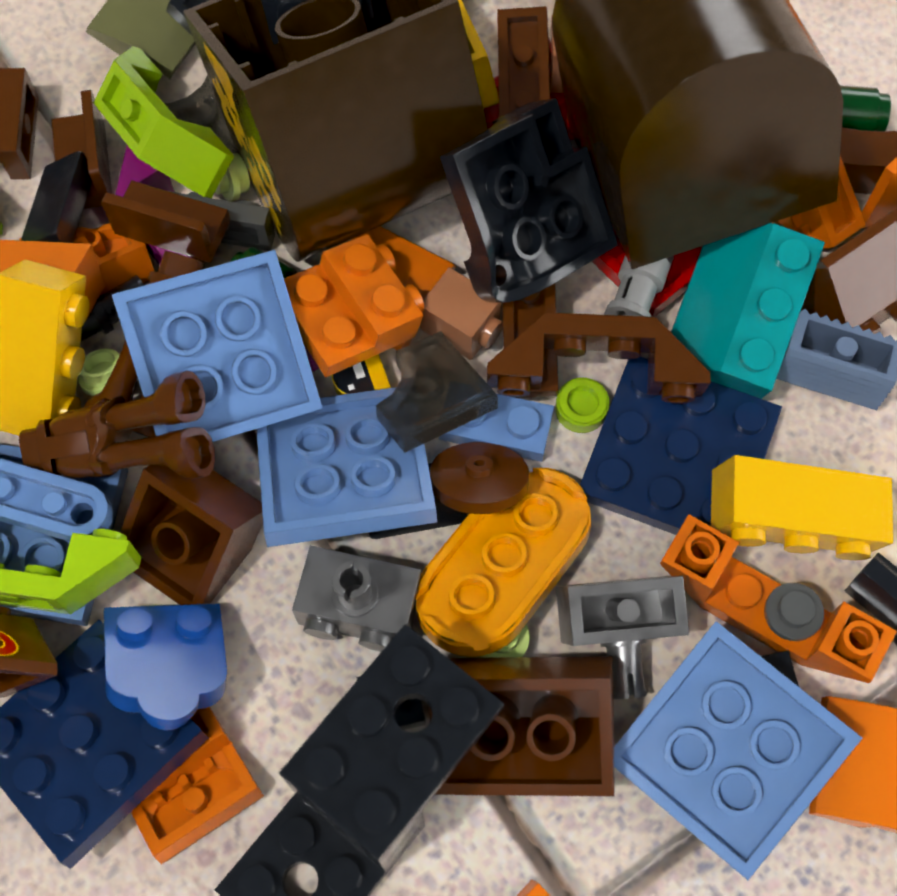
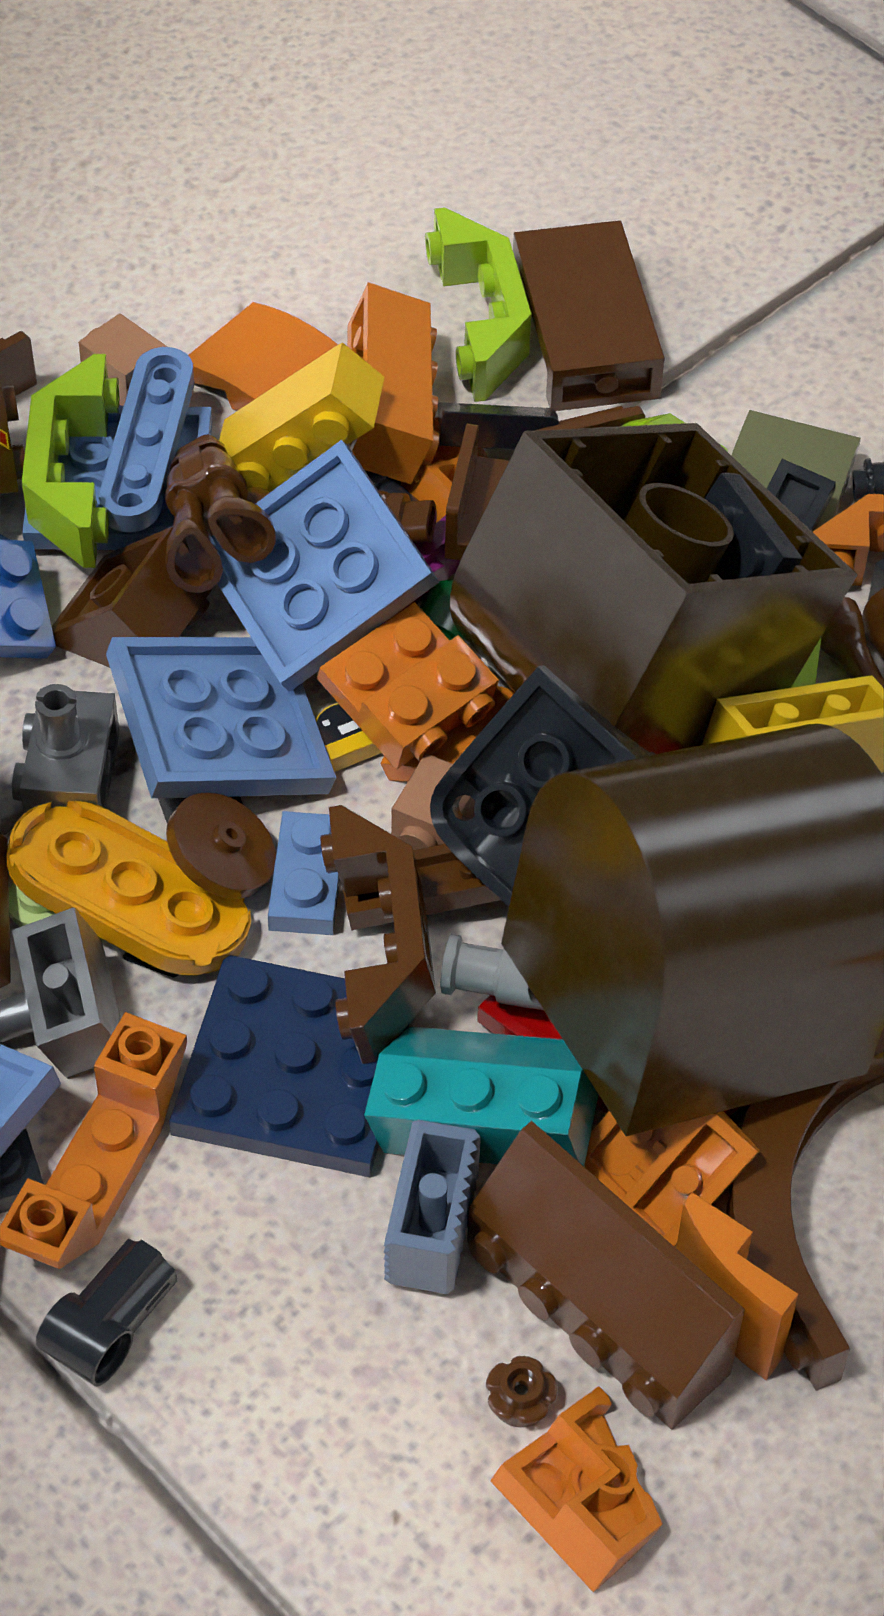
camera: 80 degrees right, 15 degrees down
(434, 393) = (308, 780): clear smoke tile -> none
(582, 405) = (343, 949): lime tile -> none
(794, 612) = (80, 1164): dark grey plate -> none
(802, 507) = (216, 1170): yellow brick -> none
(865, 108) = (844, 1225): dark green brick -> none

